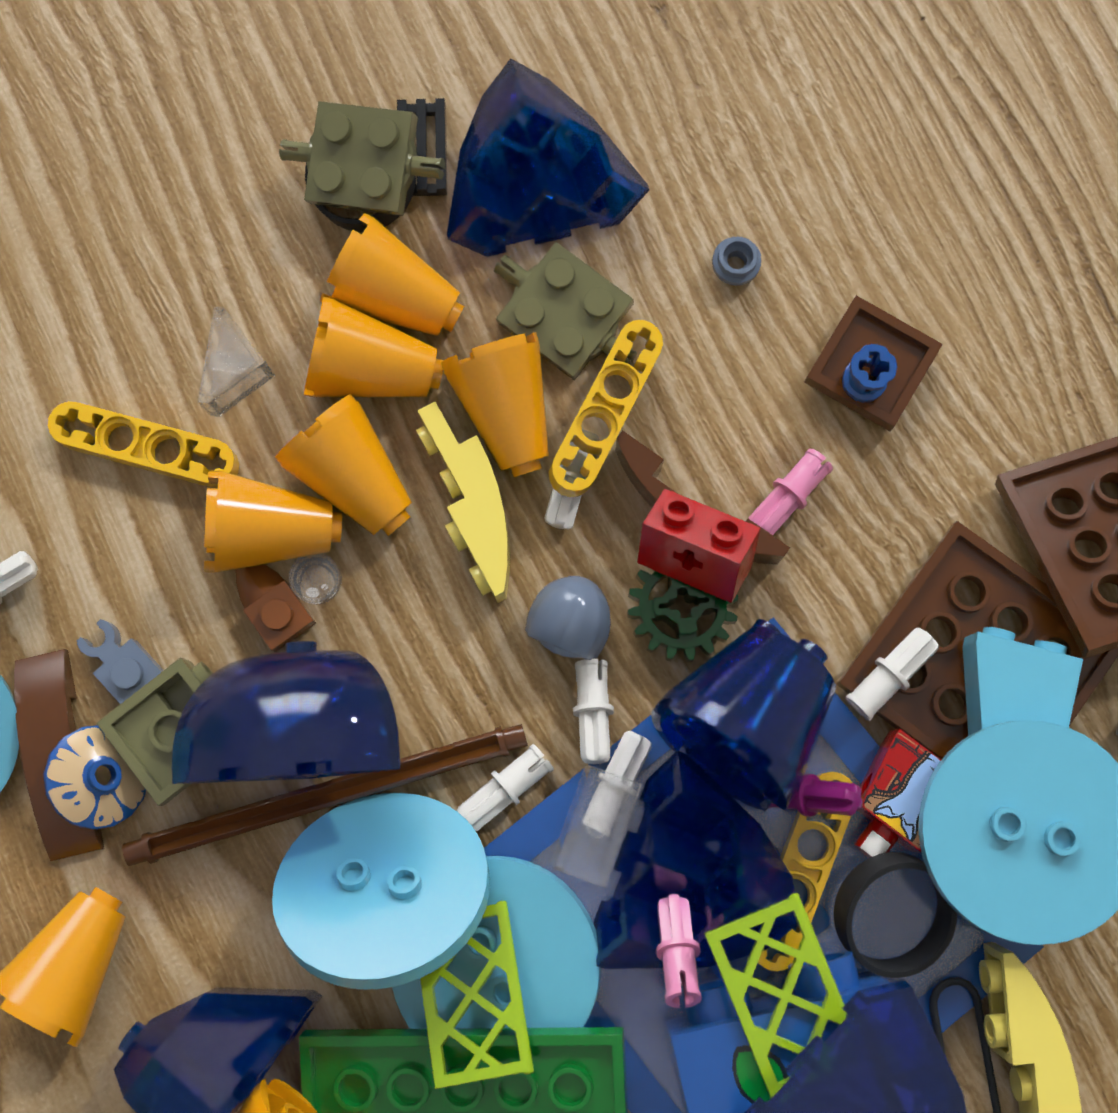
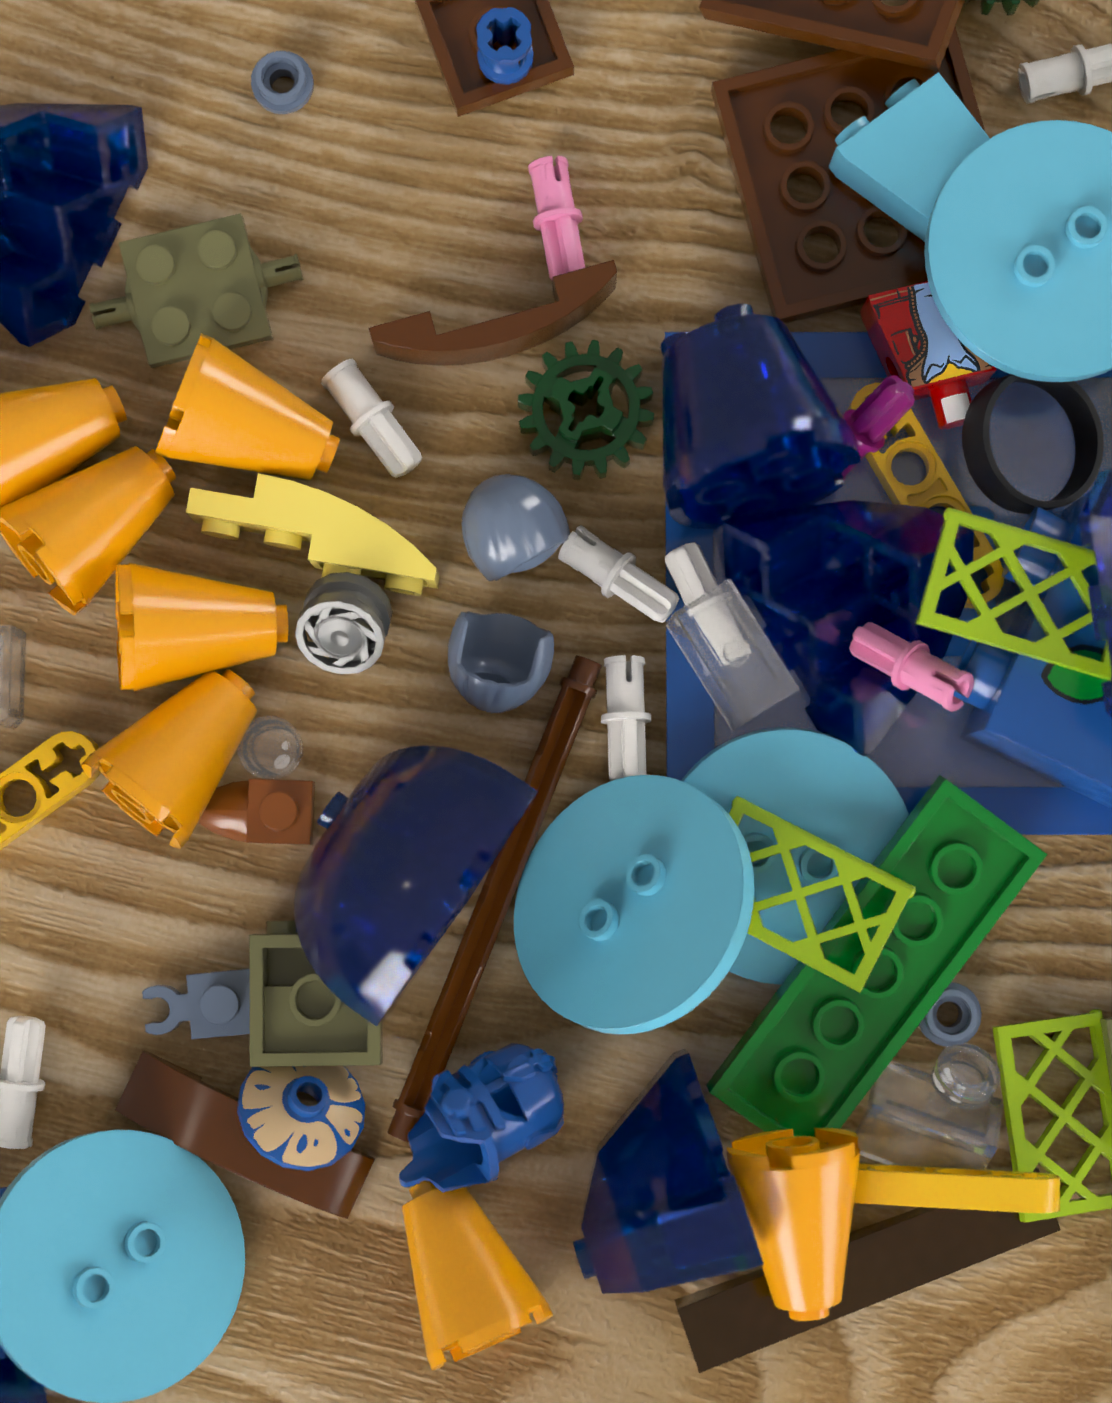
camera: 55 degrees left, 5 degrees up
(174, 900) = (484, 1116): none -> blue helmet
(426, 563) = (346, 622): none -> wheel
(477, 676) = (498, 659): none -> sand blue hair
(603, 406) = (336, 324): yellow beam -> none
(698, 545) = (542, 343): red brick -> none
(892, 673) = (809, 261): white axle -> none

